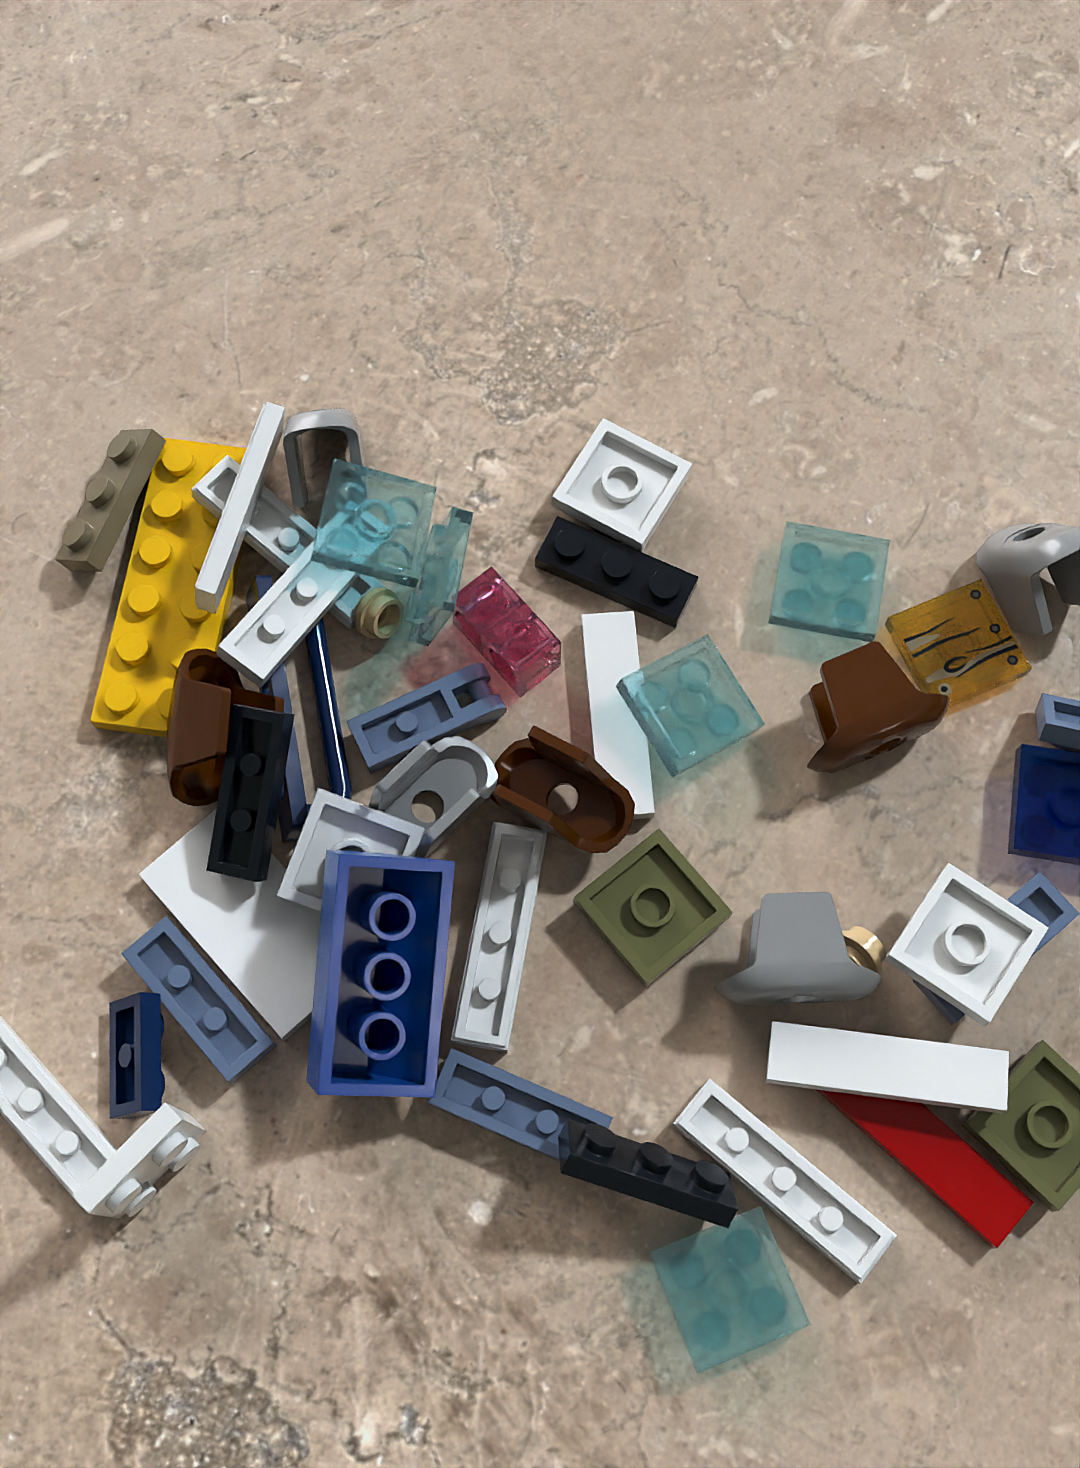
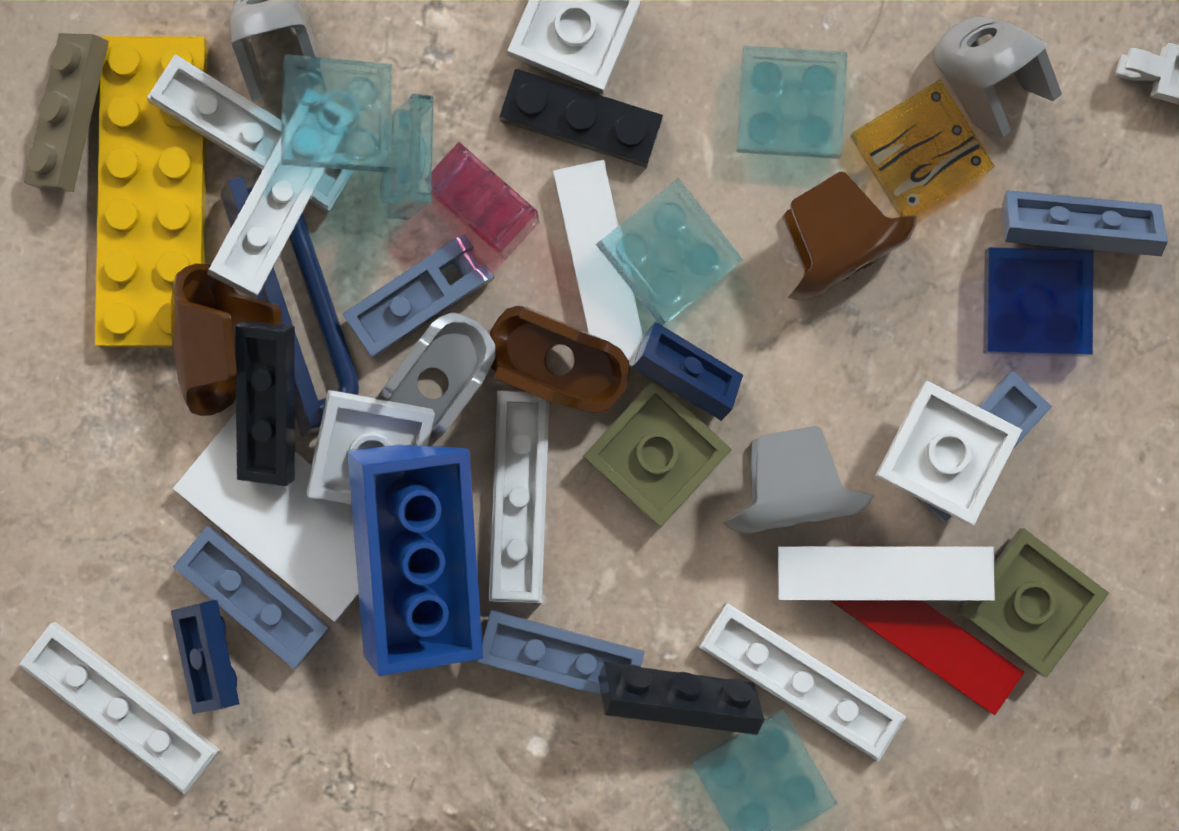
camera: 10 degrees left, 15 degrees up
(128, 1176) = (224, 768): white plate -> none
(239, 508) = (200, 114): white tile -> none
(378, 614) = (355, 198): tan plate -> none
(695, 825) = (688, 371): none -> dark blue plate
(864, 948) = (854, 469): tan plate -> none

